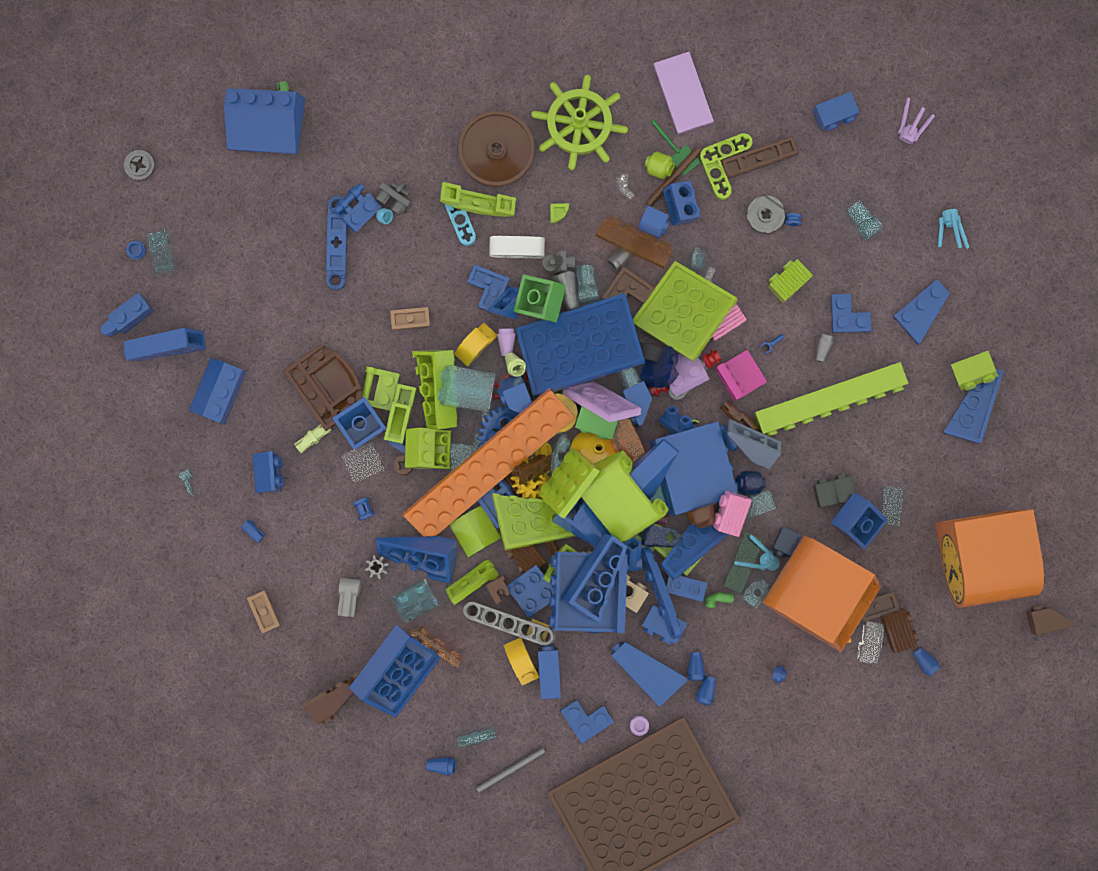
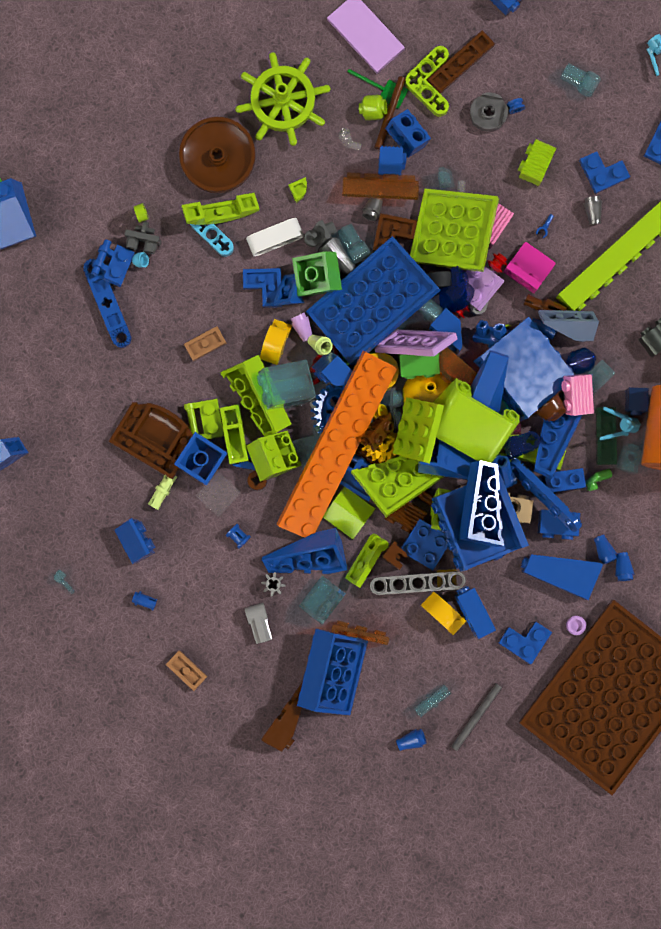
camera: 25 degrees left, 0 degrees up
(217, 391) = (55, 485): blue slope -> none
(403, 173) = (141, 212): none -> lime beam

